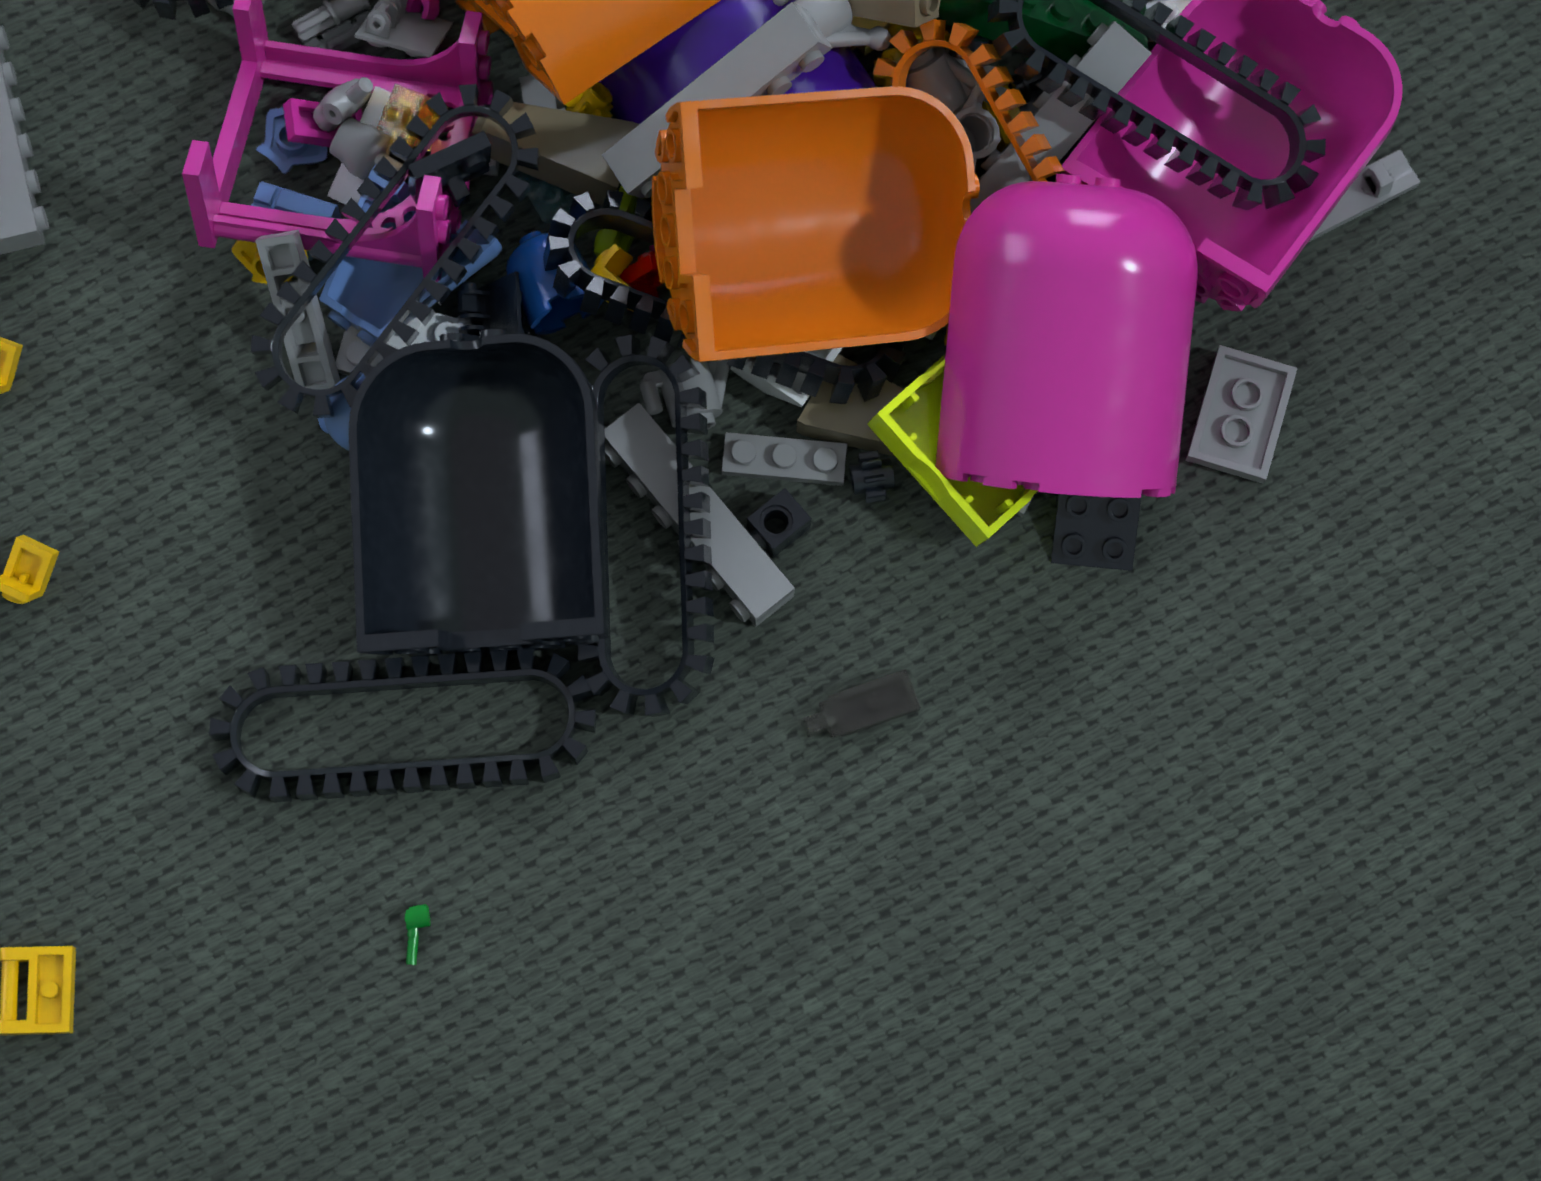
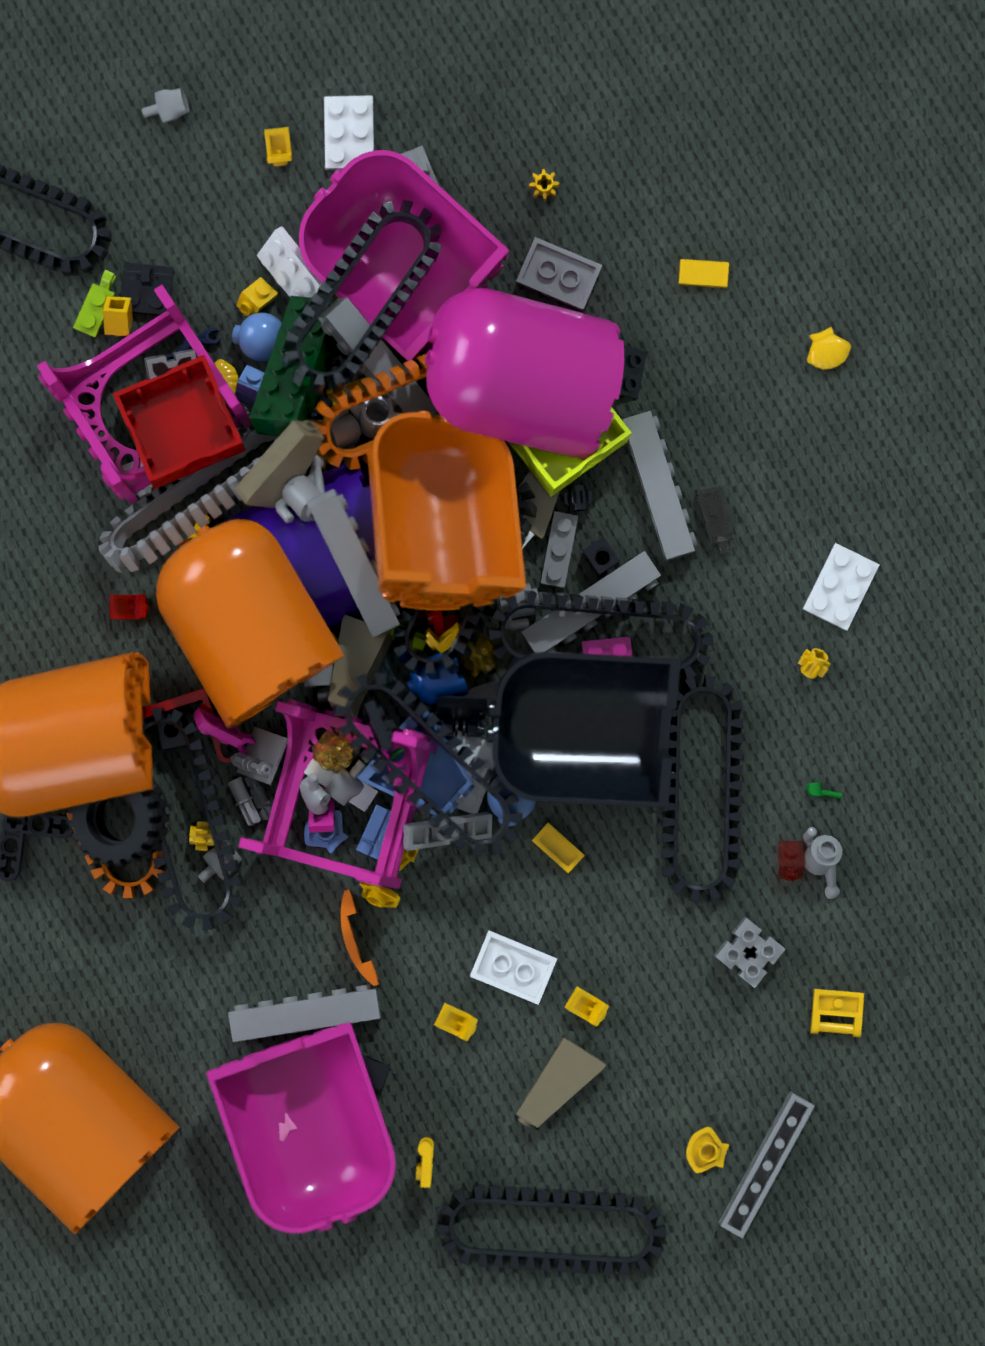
camera: 75 degrees left, 10 degrees up
(69, 219) = (367, 968): none -> orange slope
(86, 449) = (513, 967): none -> white plate
(134, 854) = (748, 936): none -> light grey brick
(185, 230) = (379, 895): none -> yellow animal
(289, 503) = (558, 847): none -> yellow tile
(293, 886) = (790, 860): none -> clear red bracket
(296, 936) = (822, 857): none -> light grey piece
(587, 334) = (481, 658): none -> clear yellow brick
(625, 553) = (613, 646): none -> dark pink plate
(632, 892) = (814, 663): none -> yellow gear
(770, 929) = (841, 587): none -> white plate
(907, 605) = (658, 487): none -> light grey brick
(1175, 869) = (827, 350): none -> yellow animal
(1276, 649) = (703, 273): none -> yellow tile
(1379, 383) = (538, 187): none -> yellow gear
(1438, 69) = (347, 129): none -> white plate

